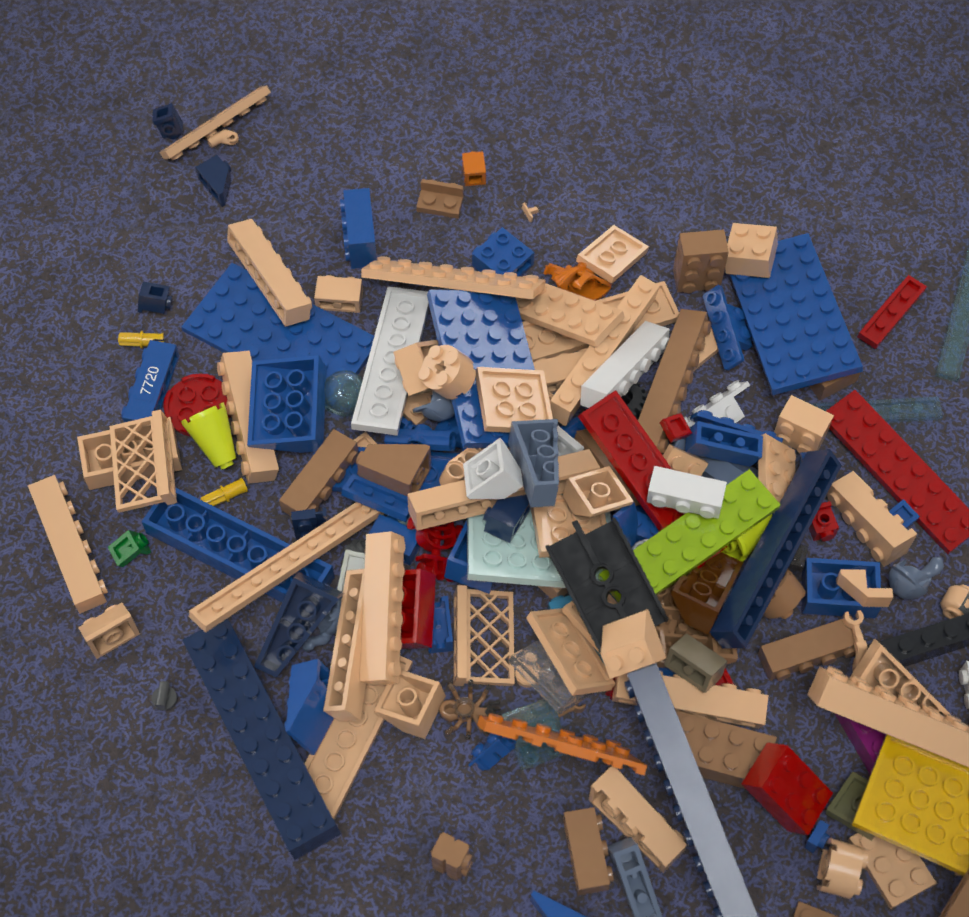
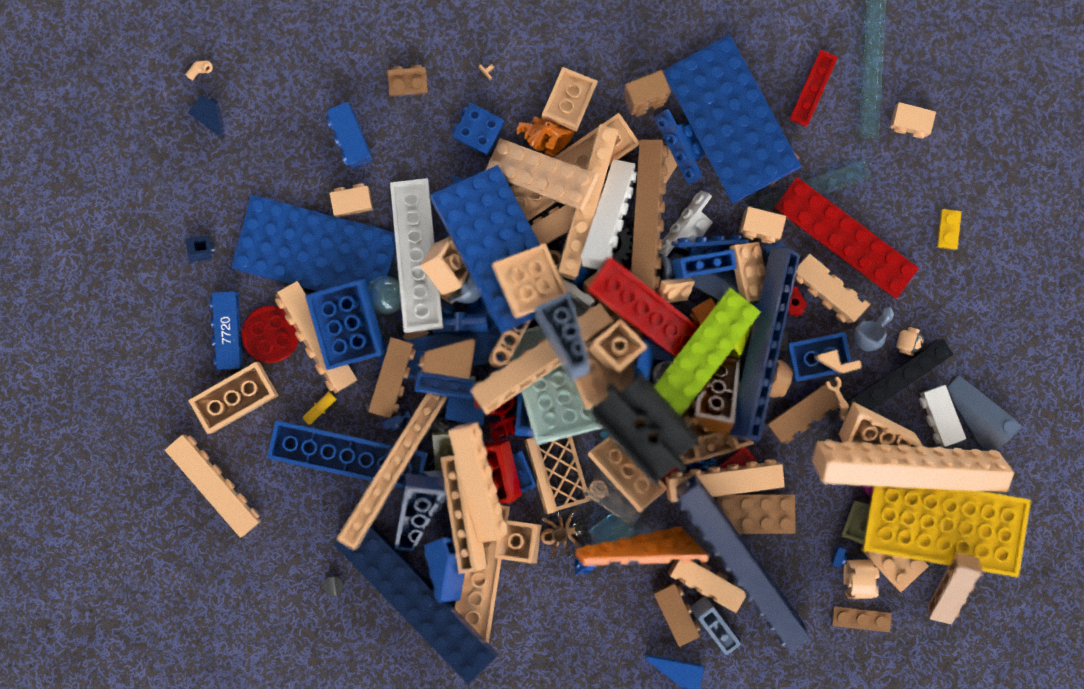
camera: 20 degrees left, 25 degrees up
(109, 630) = (272, 547): light nougat slope -> none
(128, 547) = (262, 475): green bracket -> none
(138, 339) = (202, 289): yellow axle -> none
(162, 462) = (265, 405): light nougat fence -> none
(168, 121) = (148, 73): dark blue brick -> none
(209, 128) = (188, 53): light nougat plate -> none
(213, 435) = (292, 362): neon yellow cone -> none
(269, 272) = (287, 200): light nougat brick -> none
(447, 371) = (471, 276): light nougat brick -> none
(451, 857) = (583, 649): medium nougat brick -> none
(452, 278) = (445, 167): light nougat plate -> none
(474, 168) = (427, 41): orange brick -> none
(492, 473) = (532, 357): white slope -> none
(506, 517) = (551, 384): dark blue slope -> none
(630, 644) = (675, 474): light nougat slope -> none
(675, 427) = (663, 265): red tile -> none
(686, 492) = (687, 329): white brick -> none
(695, 663) = (724, 459): dark tan brick -> none
(751, 250) = (686, 69): light nougat brick -> none
(787, 788) = (810, 533): red brick -> none
(905, 512) = (854, 278): blue plate -> none

